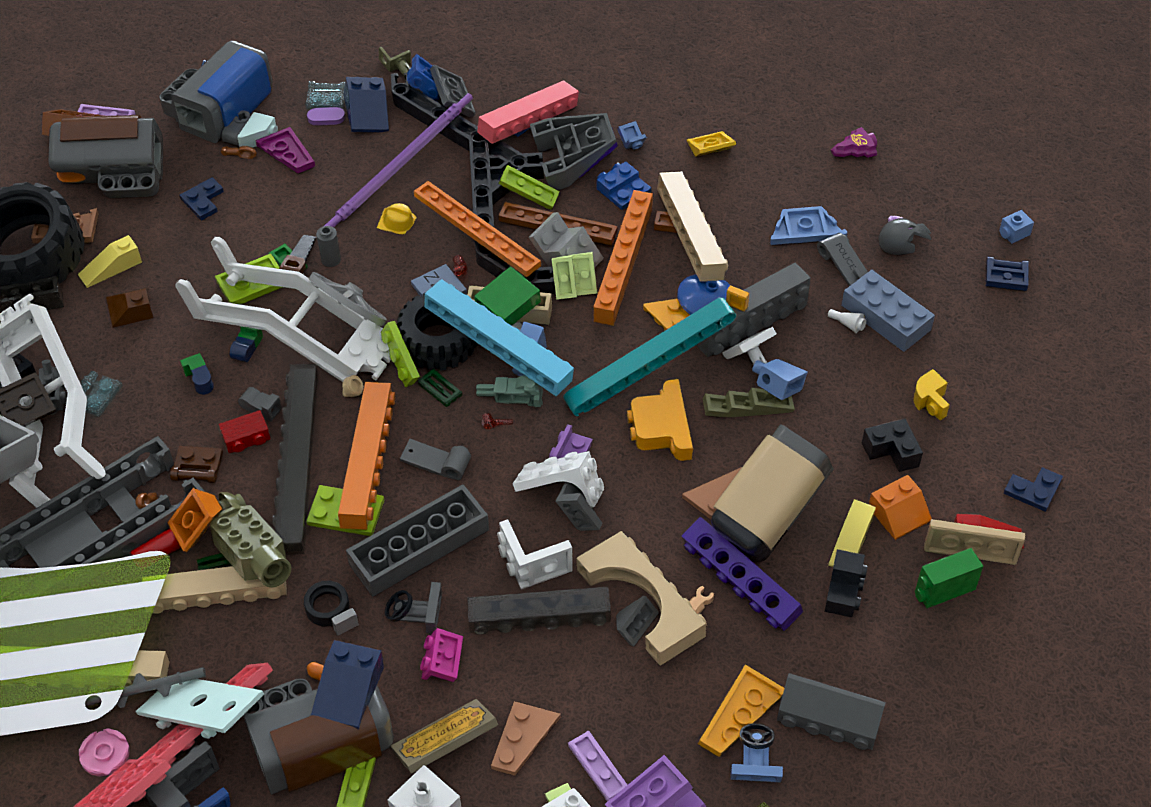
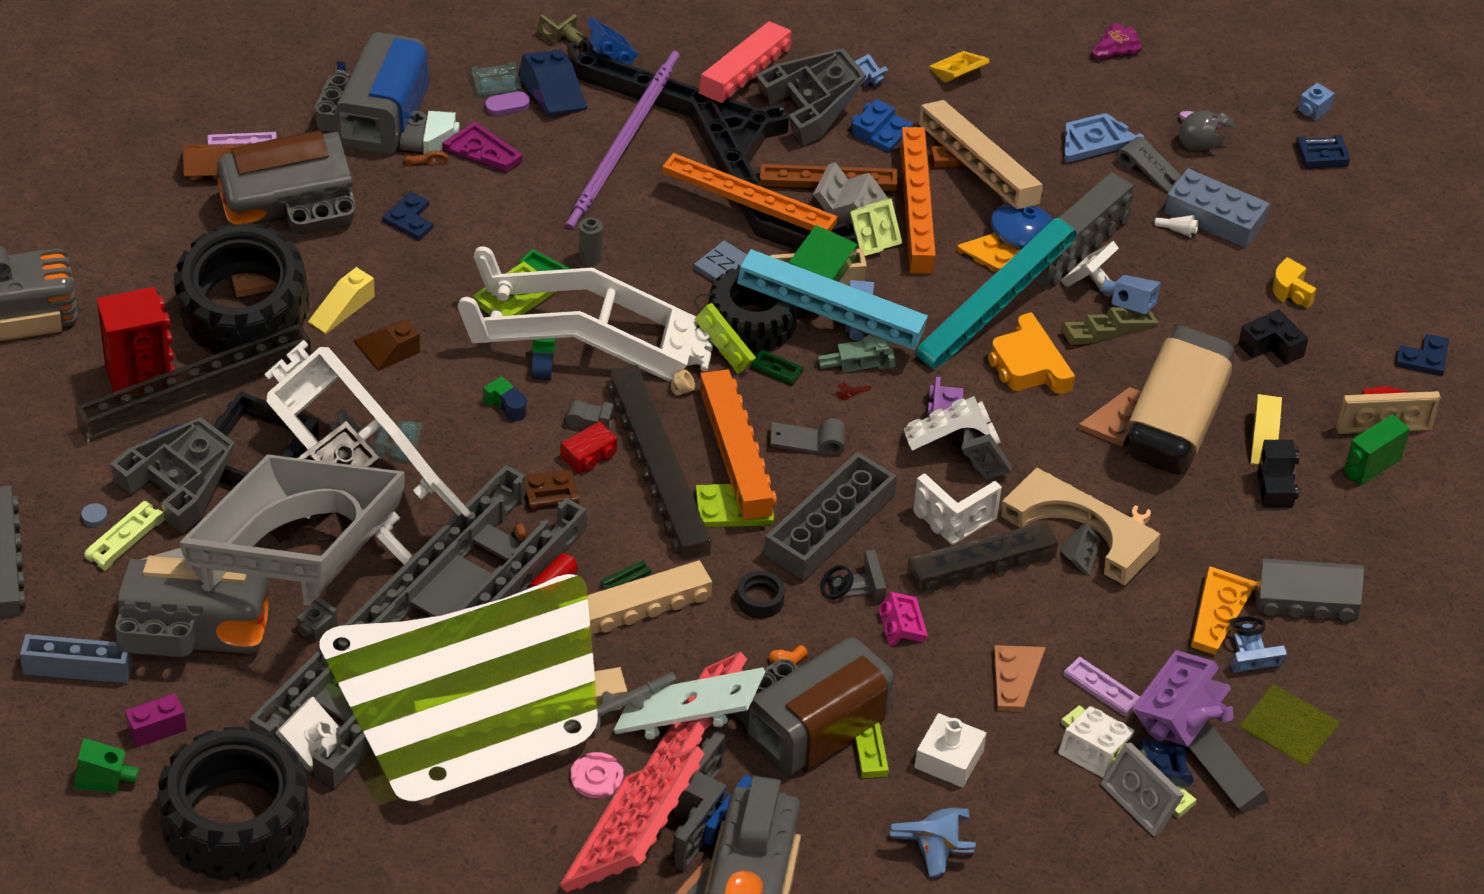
camera: 20 degrees left, 5 degrees down
(193, 517) = (587, 537): orange slope -> none
(249, 542) = (658, 547): olive brick -> none
(297, 259) = (556, 254): piece -> none
(345, 621) = (789, 606): light grey tile -> none
(347, 683) = (844, 644): dark blue slope -> none
(350, 296) = (653, 285): light grey wheel -> none
(396, 219) = (644, 202): yellow piece -> none
(444, 735) = (941, 687): tile -> none
(451, 89) = (643, 50): dark grey tile -> none
(460, 266) = (743, 241): clear red arm -> none
(528, 187) = (782, 143): lime plate -> none
(703, 533) = (1164, 474): dark purple brick -> none
(737, 298) = (1071, 215): light orange tile -> none
(900, 507) = (1303, 395): orange slope -> none

